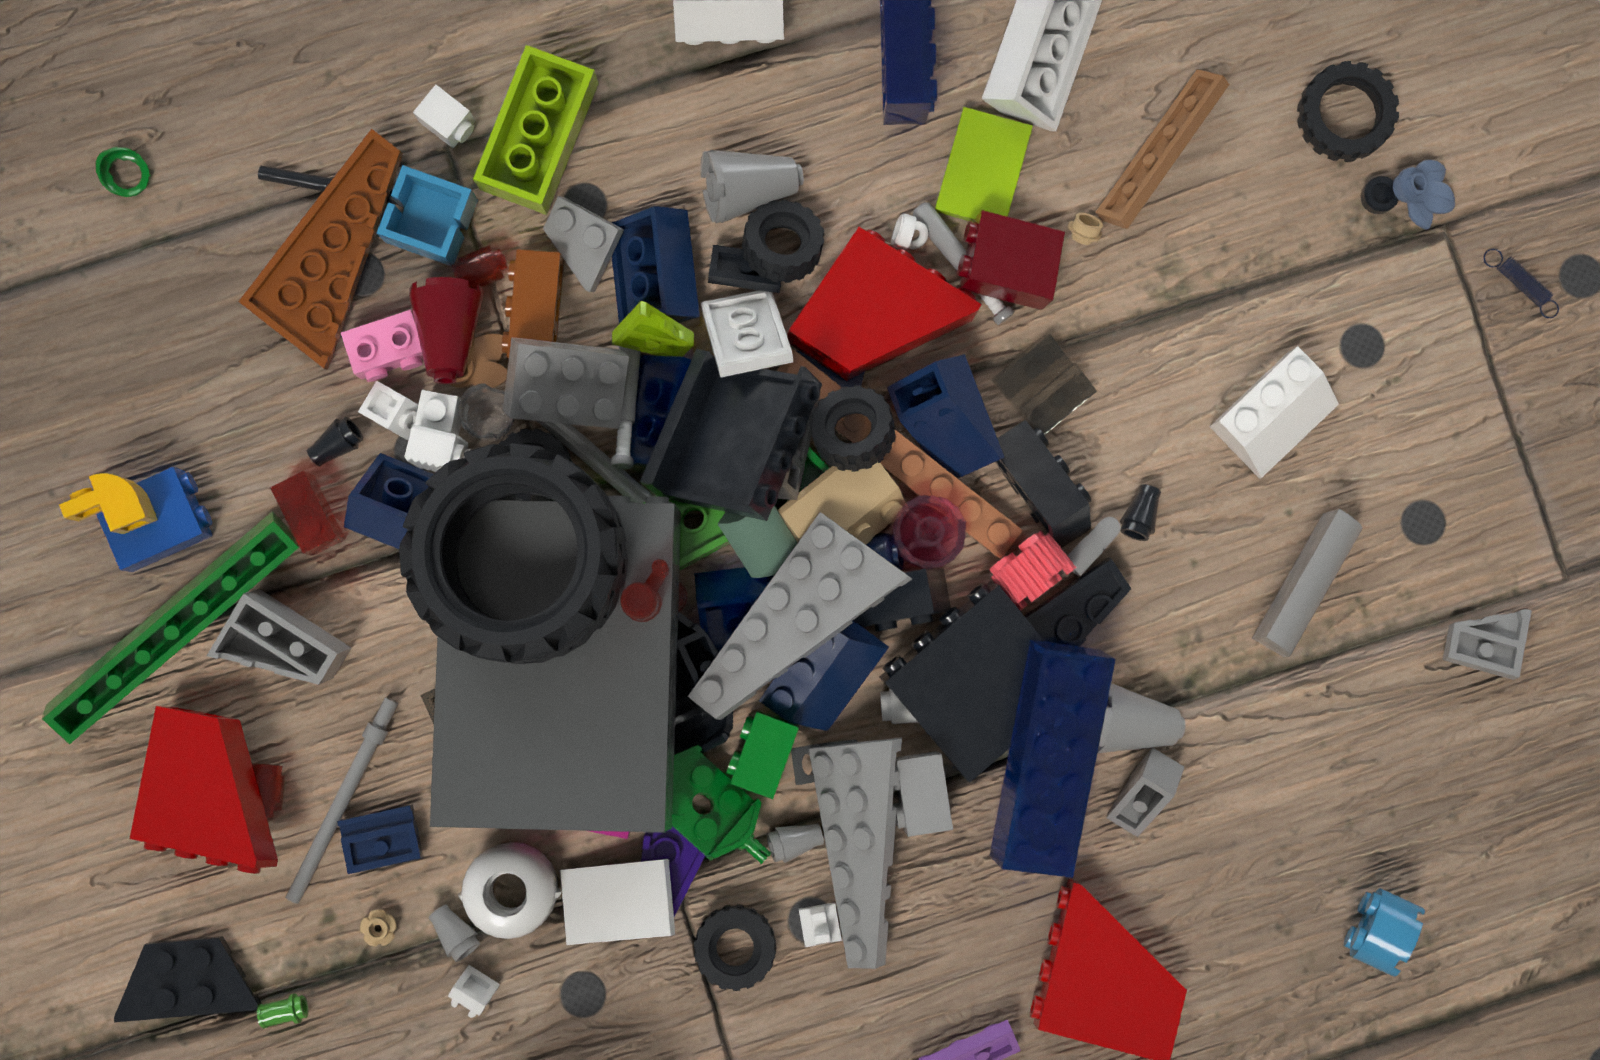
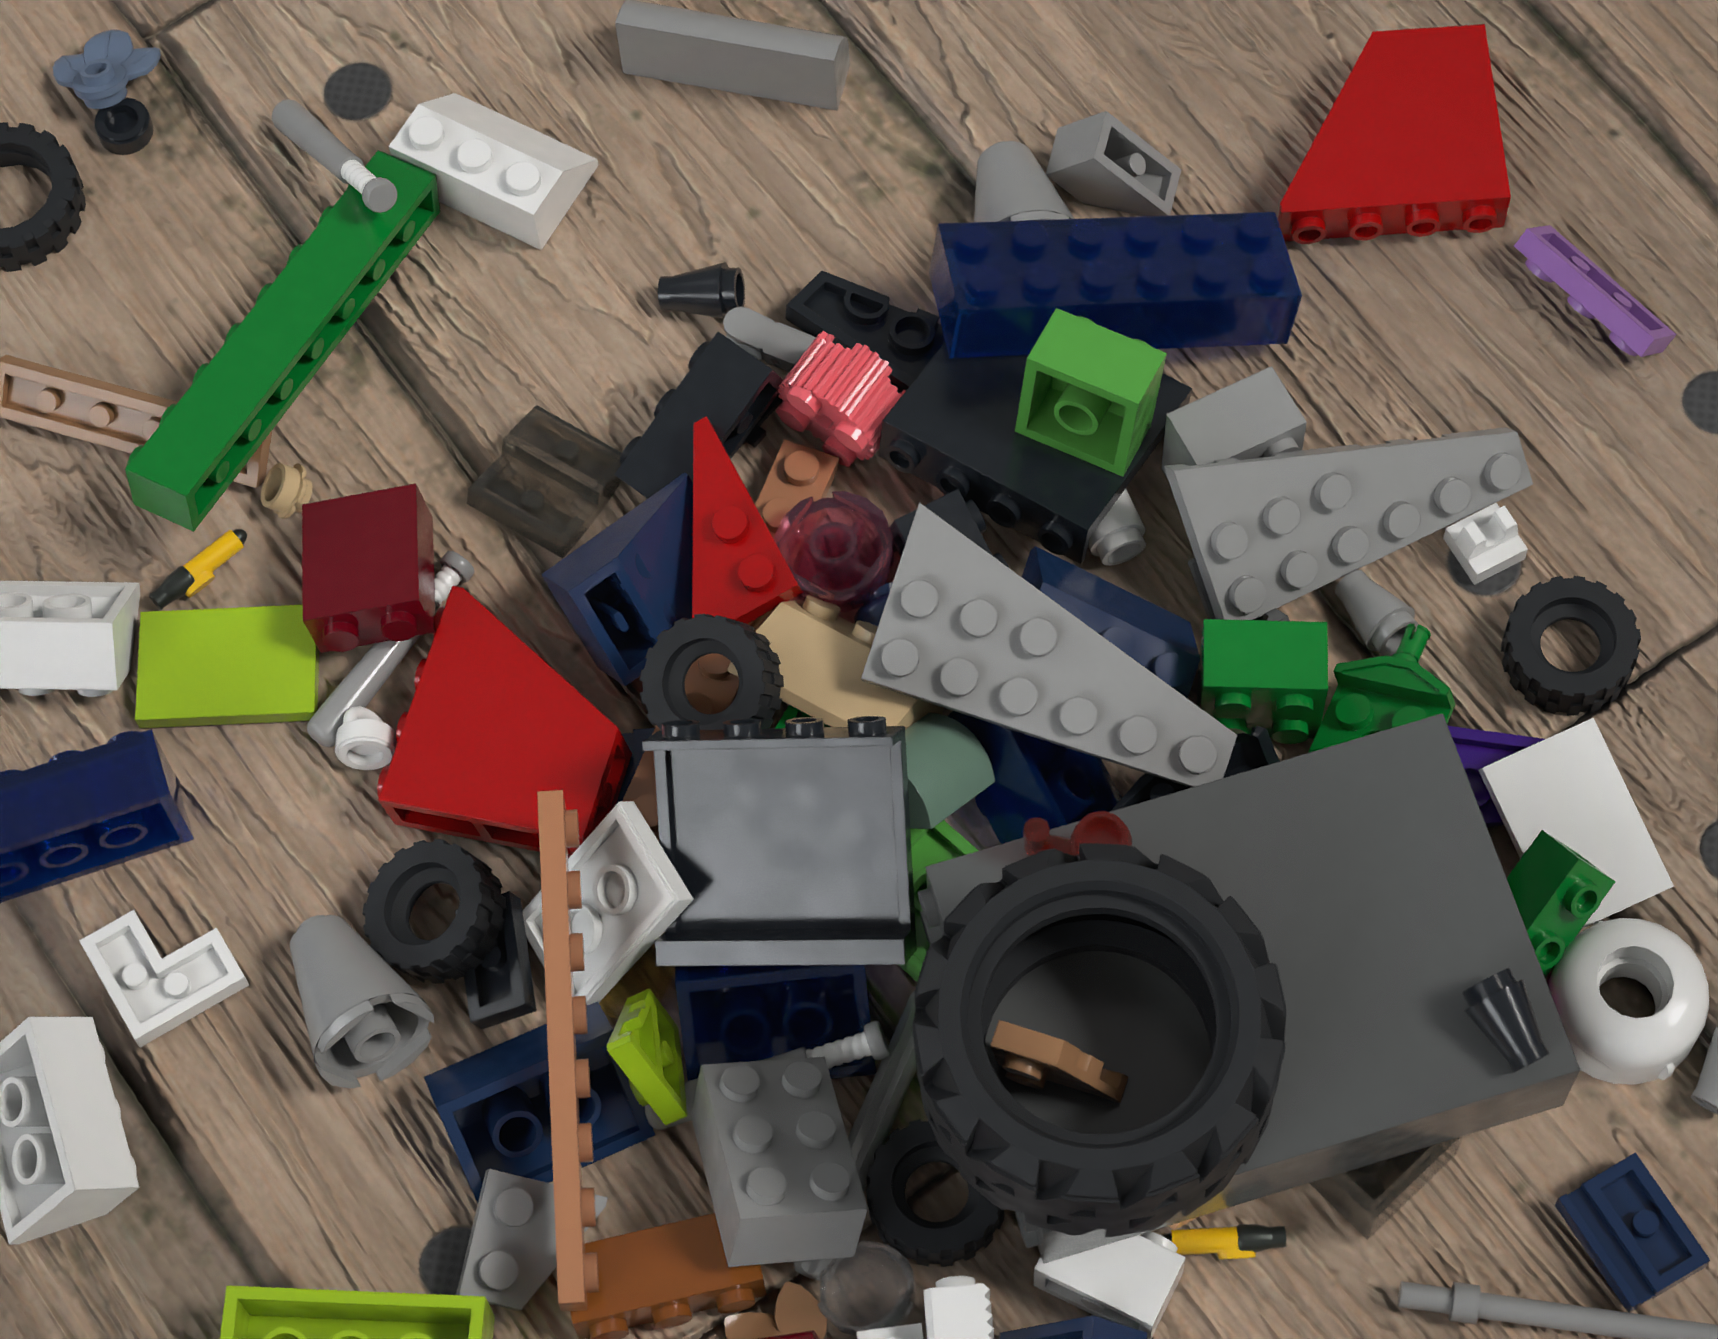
camera: 100 degrees left, 20 degrees down
(467, 794) = (1507, 1018): none -> black cone
(520, 529) = (1037, 1057): none -> medium nougat wing
(570, 863) = (1555, 895): none -> green brick
(673, 285) = (567, 1075): none -> nougat plate
(793, 77) = (158, 991): none -> white plate
(939, 471) = (734, 553): none -> red wing
(968, 712) = (1089, 391): none -> bright green brick
(1052, 167) = (199, 570): none -> piece
(1181, 249) = (279, 346): none -> green brick
(1308, 310) = (317, 141): none -> light grey piece

